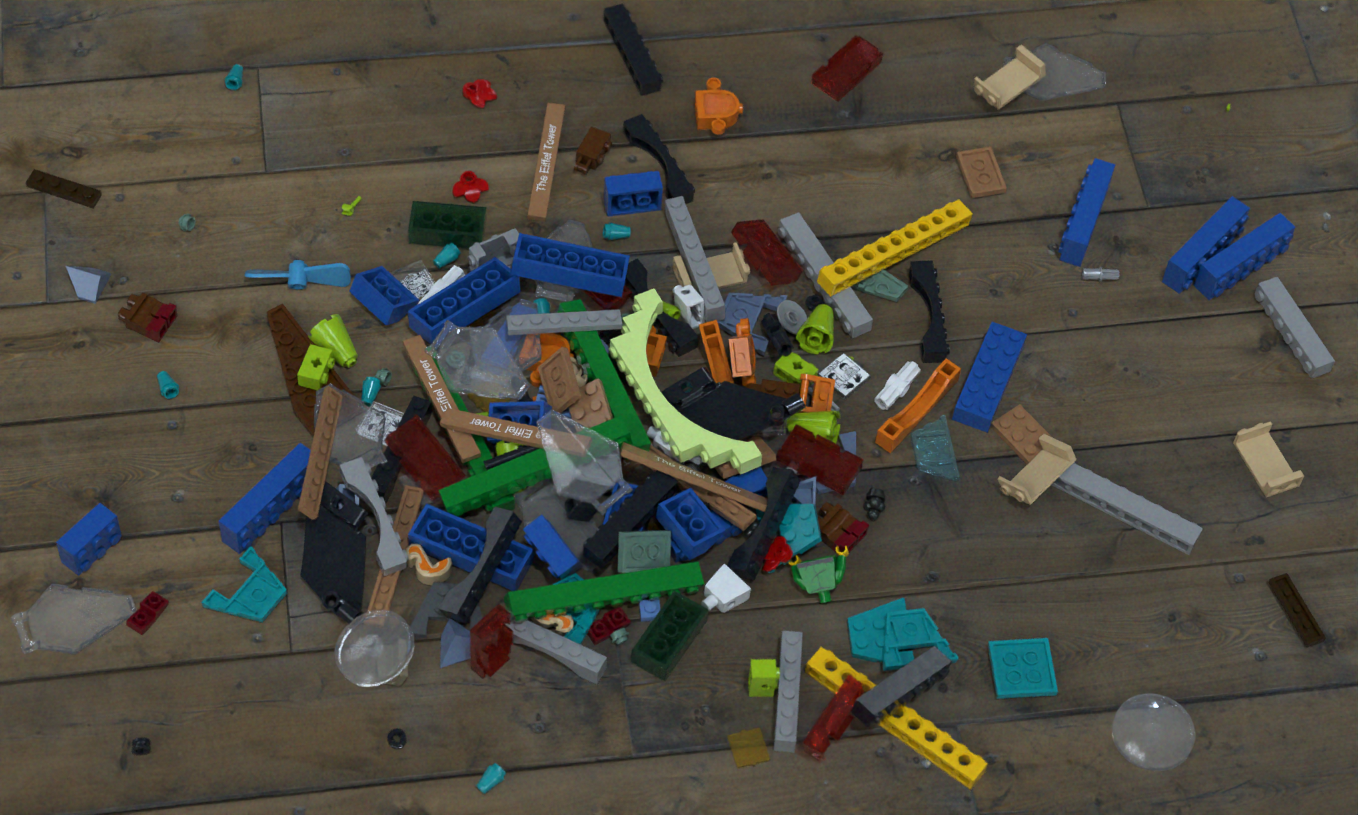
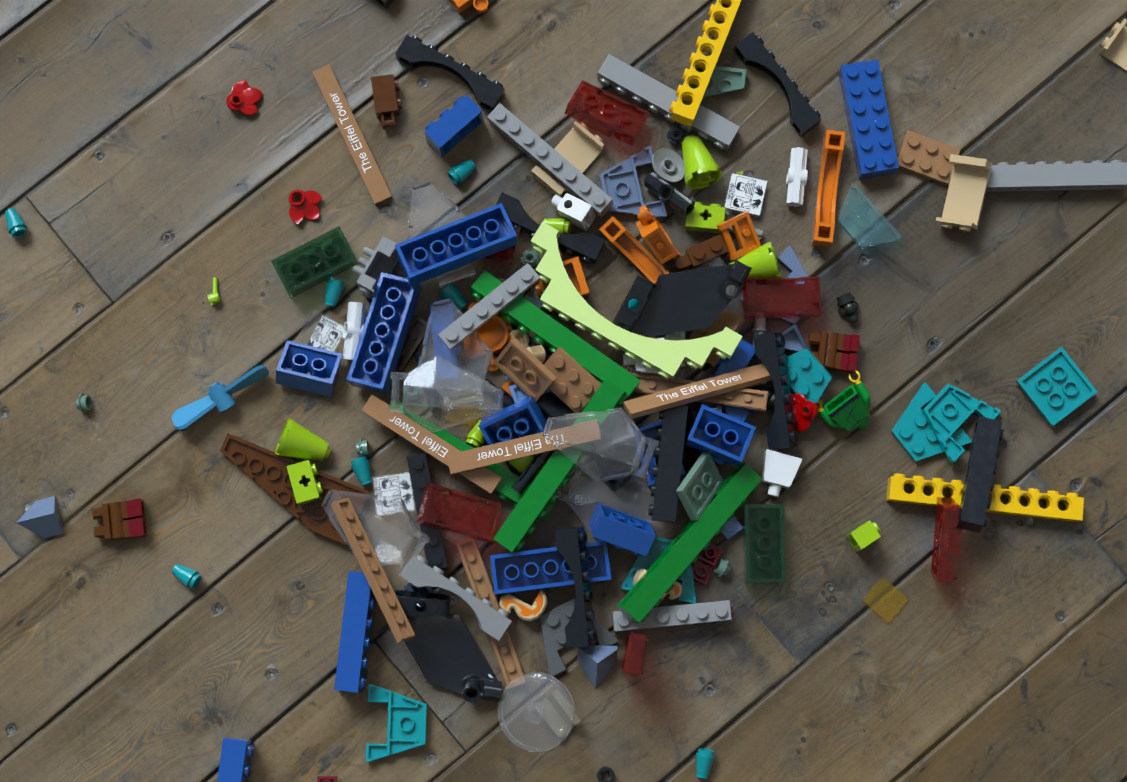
camera: 30 degrees left, 25 degrees up
(788, 691) = (892, 537): light grey arch -> none

